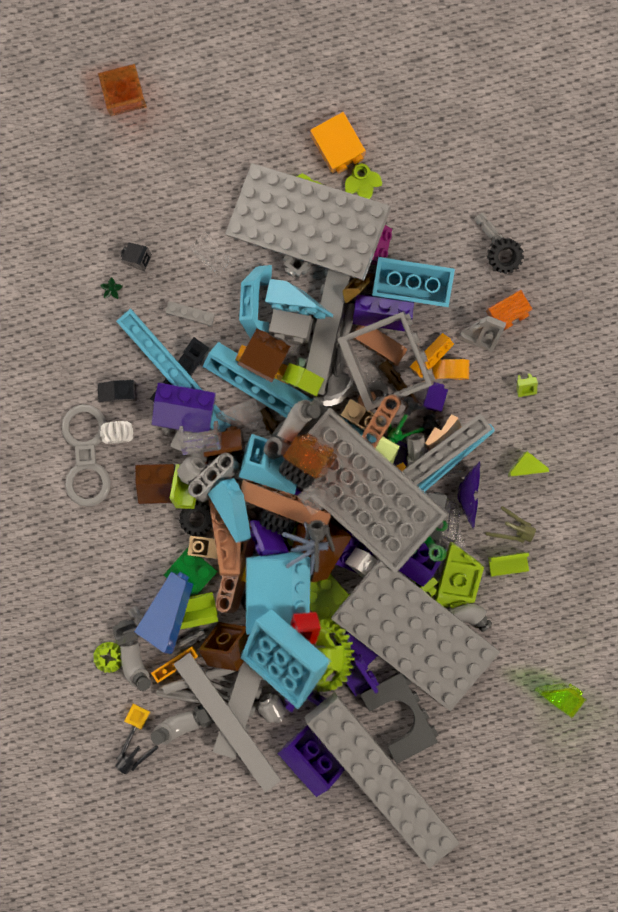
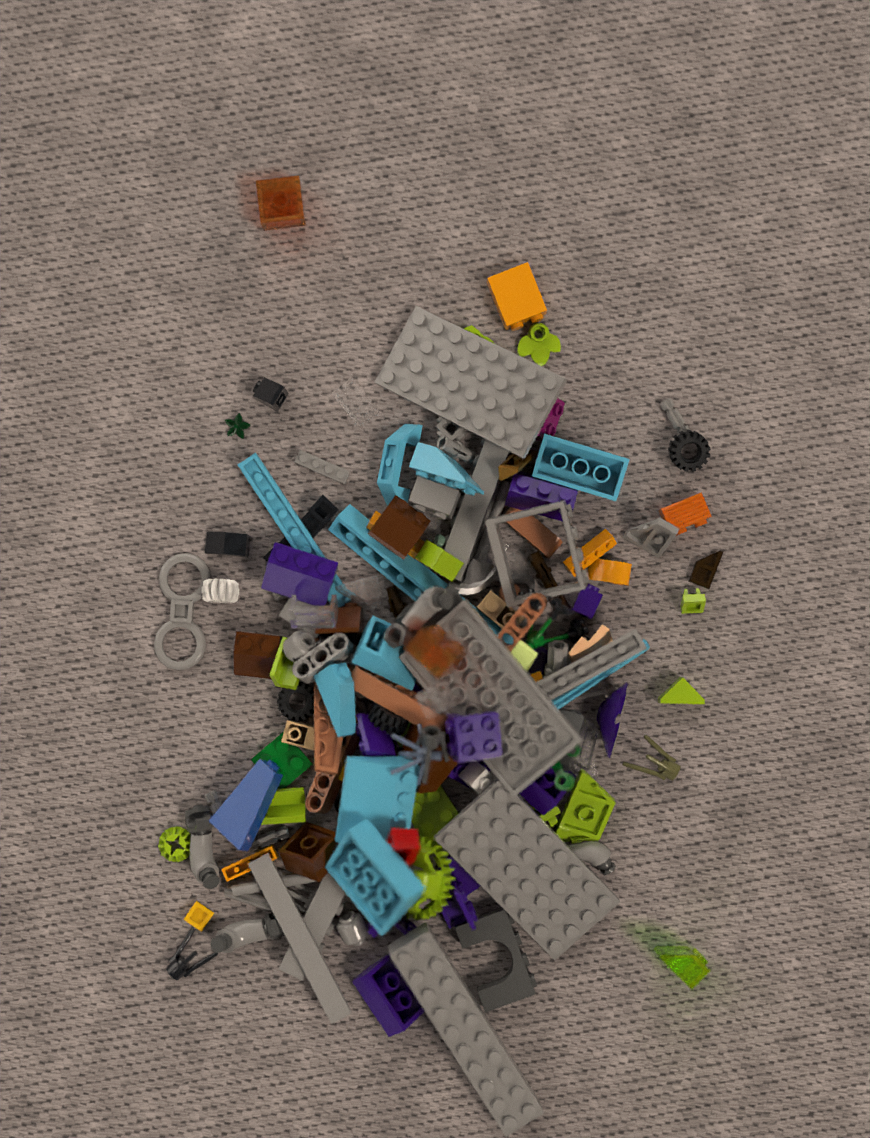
camera: 10 degrees right, 0 degrees up
(295, 278) = (448, 446): none -> light grey pin
(296, 475) = (416, 671): black tyre -> none
(353, 525) = (473, 736): none -> dark purple bracket
(508, 564) = (643, 802): lime panel -> none
(533, 356) = (705, 570): none -> dark brown tile

